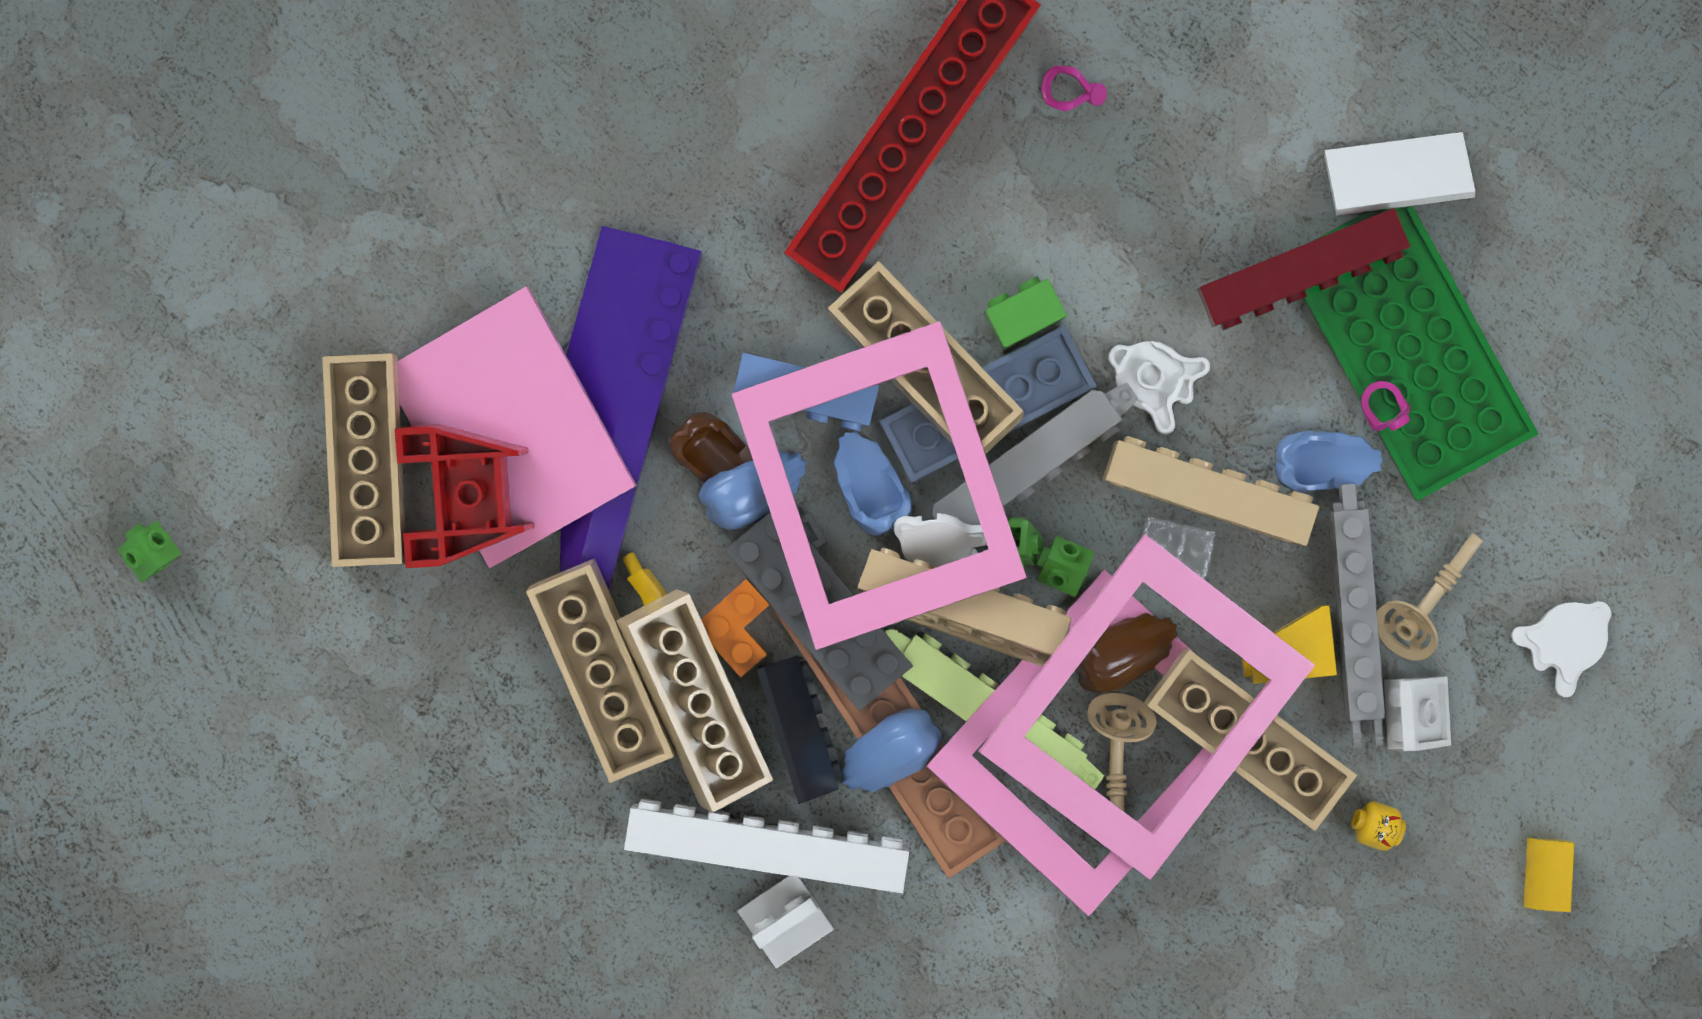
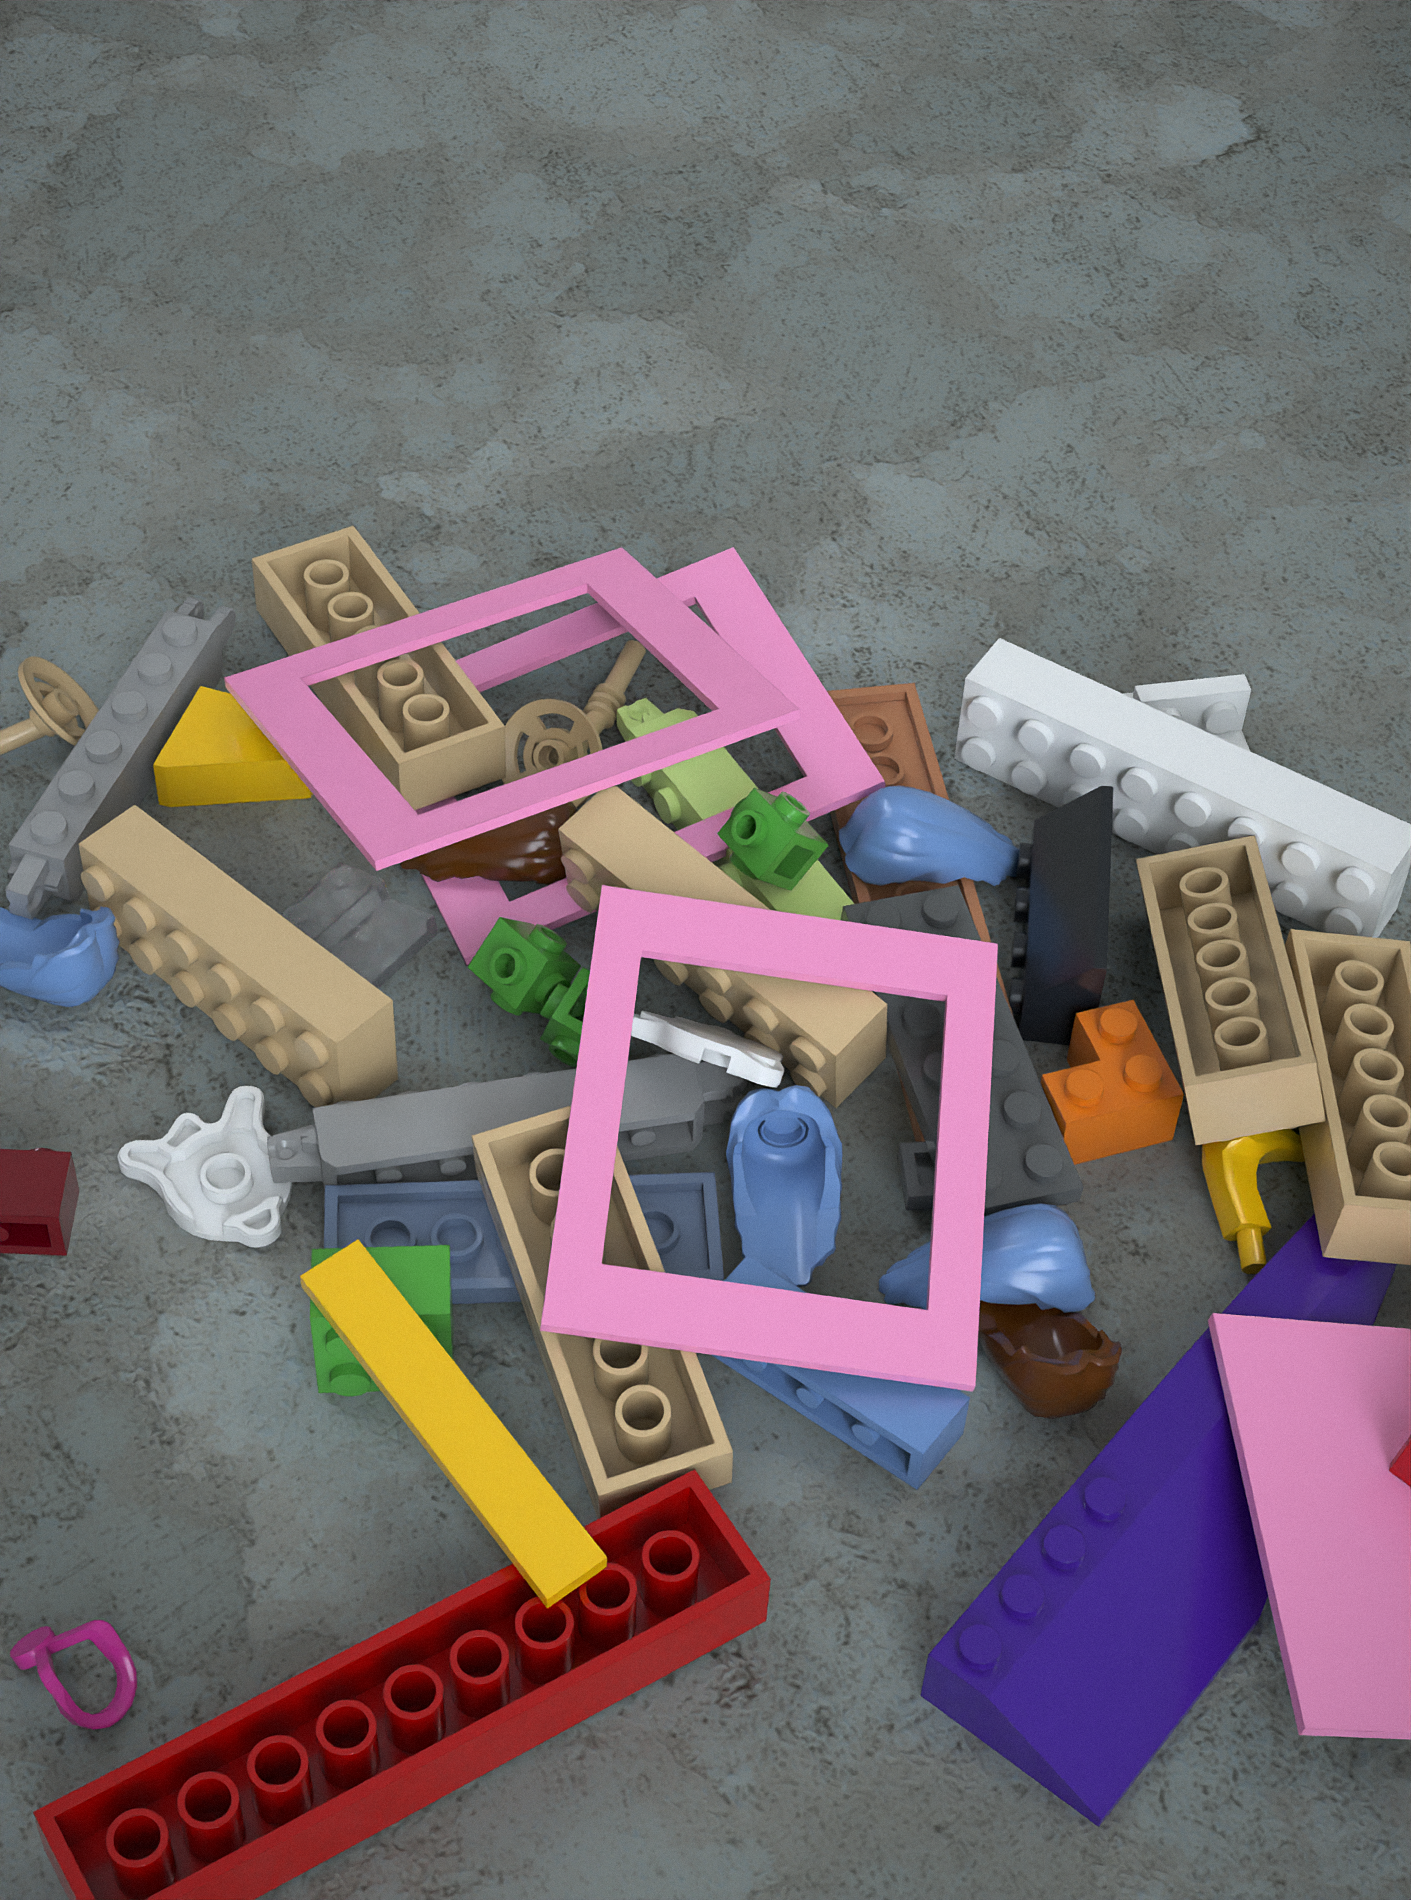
camera: 160 degrees left, 40 degrees down
(958, 255) = (454, 1424): none -> yellow tile
(967, 689) = (772, 838): none -> bright green brick
(1378, 826) = (257, 527): yellow head -> none
(1417, 713) = (117, 616): white bracket -> none
(1549, 874) = (68, 415): yellow brick -> none

